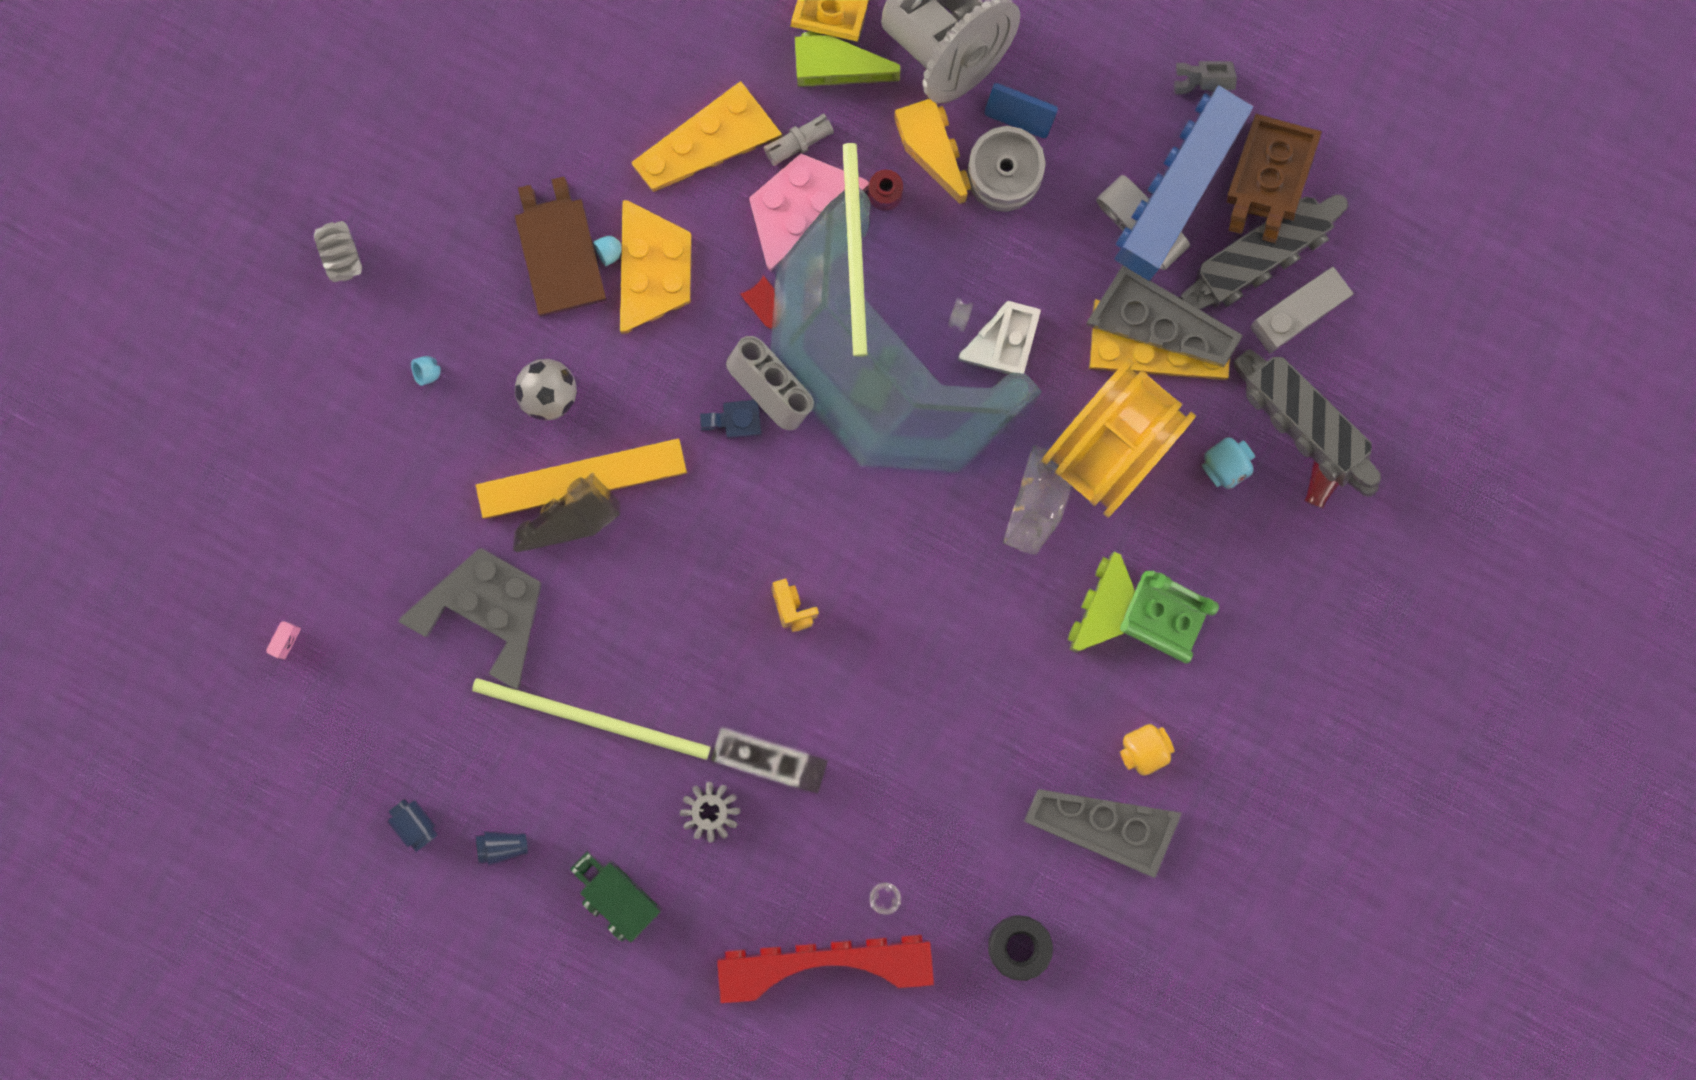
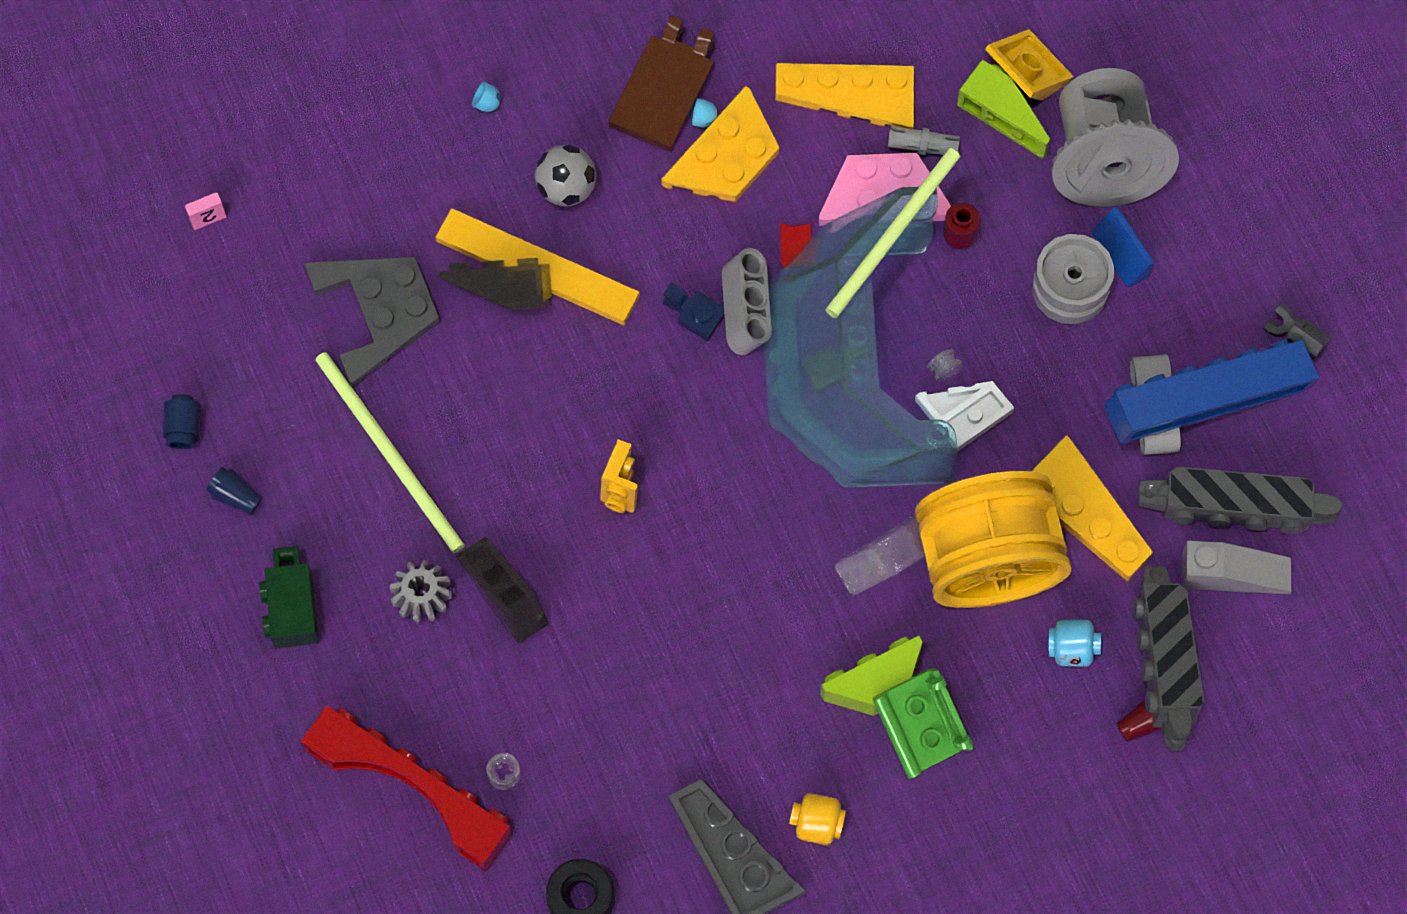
camera: 40 degrees right, 15 degrees down
(927, 142) = (1025, 217): yellow slope -> none
(1160, 319) = (1106, 483): dark grey wing -> none
(1271, 173) = (1292, 441): reddish brown tile -> none

